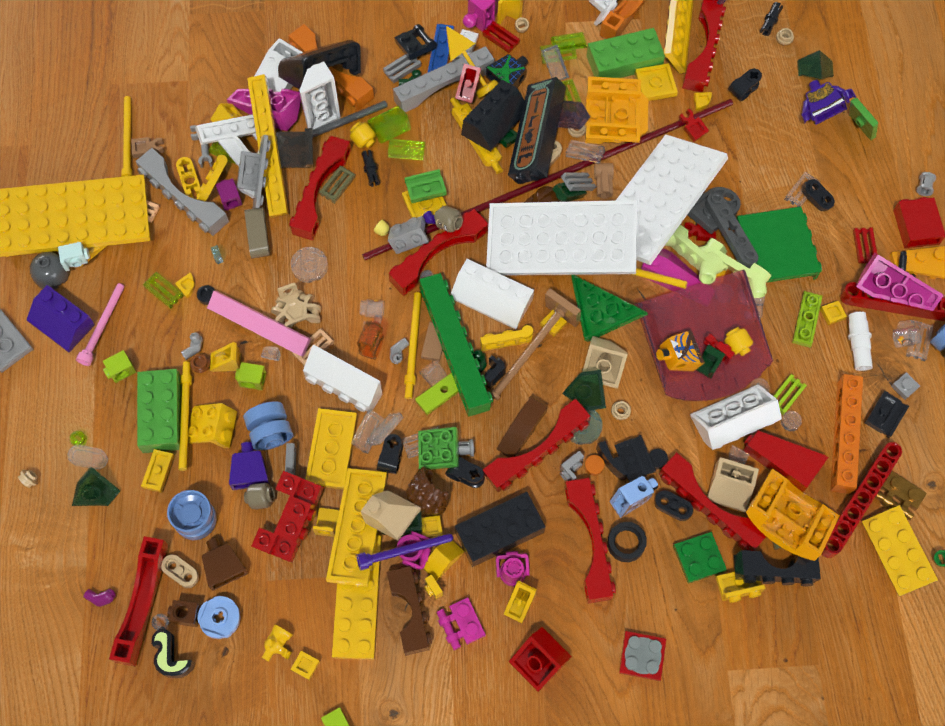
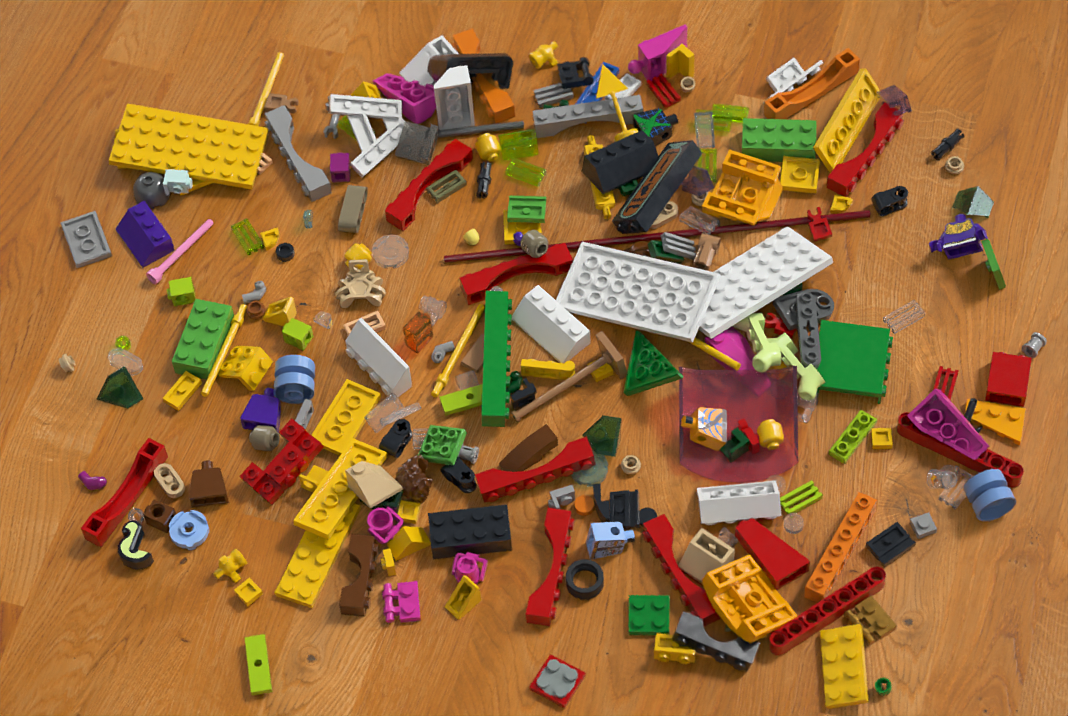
camera: 25 degrees right, 10 degrees down
(191, 174) = (305, 139): yellow beam -> none
(191, 515) = (197, 434): medium blue wheel -> none
(212, 177) = (330, 148): yellow plate -> none
(252, 170) = (366, 151): light grey bracket -> none
(259, 323) = (322, 289): bright pink tile -> none
(265, 126) = (392, 132): yellow plate -> none
(280, 277) = (358, 252): none -> yellow head
(365, 560) = (334, 515): dark purple piece -> none
(378, 31) = (542, 54): none -> yellow piece
(408, 235) = (492, 250): light grey bracket -> none
(468, 83) = (607, 125): slope -> none
(540, 658) = (460, 651): red slope -> none
(608, 358) = (635, 415): tan slope -> none
(673, 505) = (644, 563): black plate -> none
(818, 196) = (913, 325): black plate -> none
(860, 341) = (894, 470): white piece -> none

